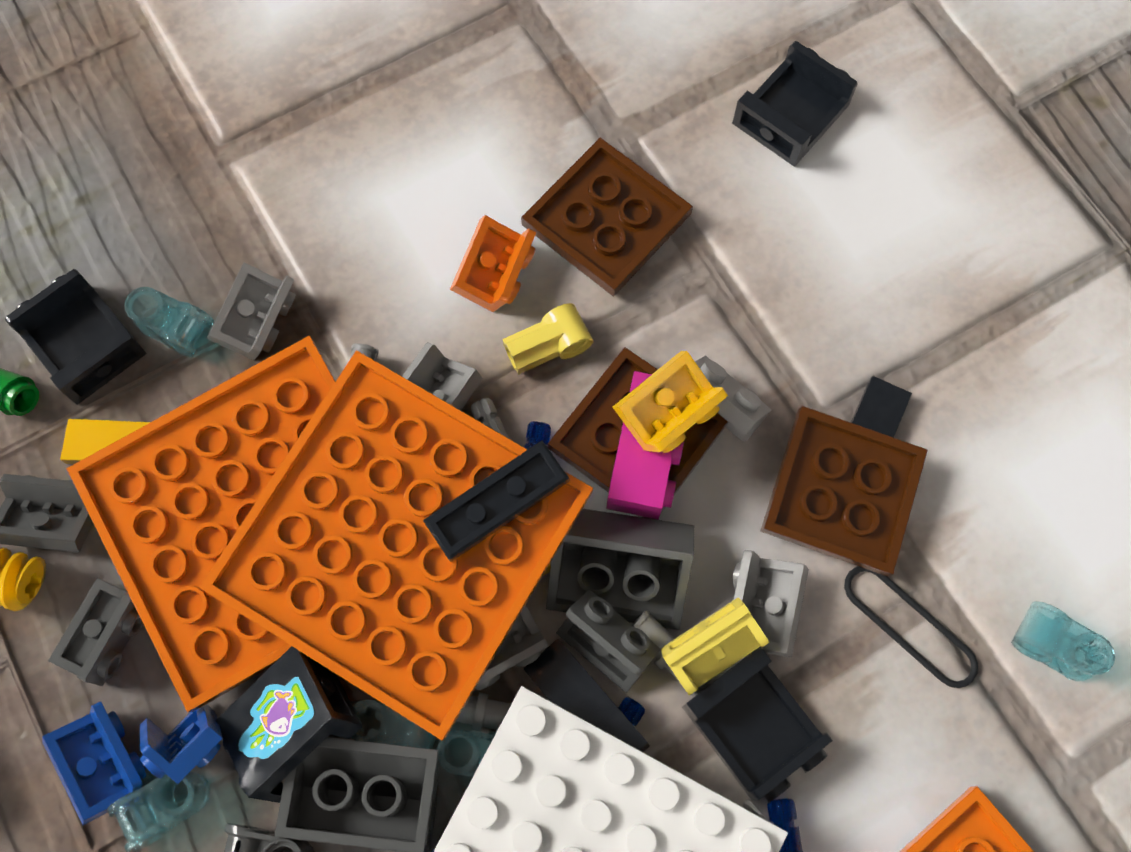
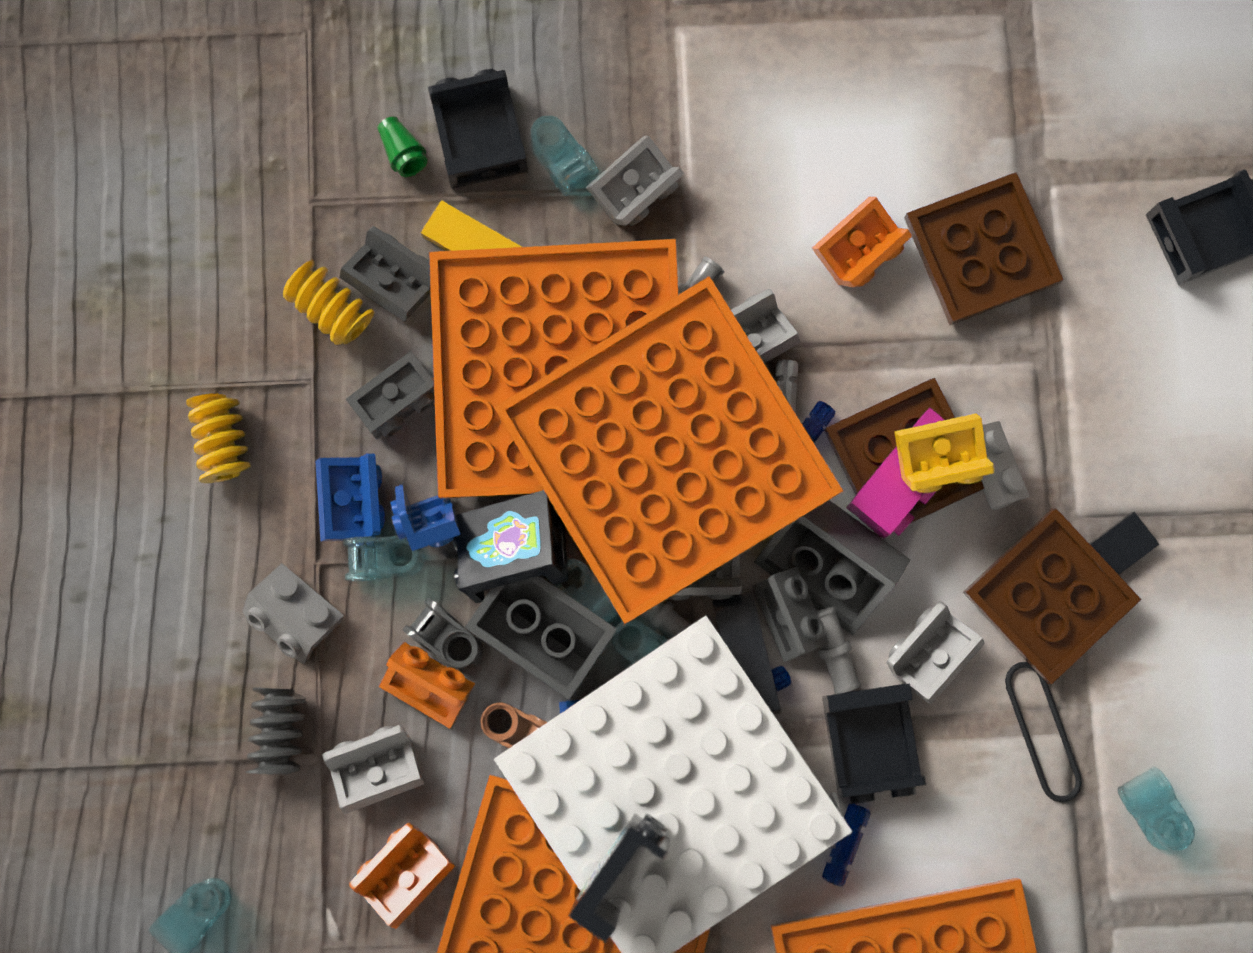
camera: 25 degrees right, 10 degrees up
(496, 500) = (761, 461): black tile -> none
(558, 334) = (883, 336): light yellow piece -> none
(713, 645) = (872, 663): light yellow hinge -> none

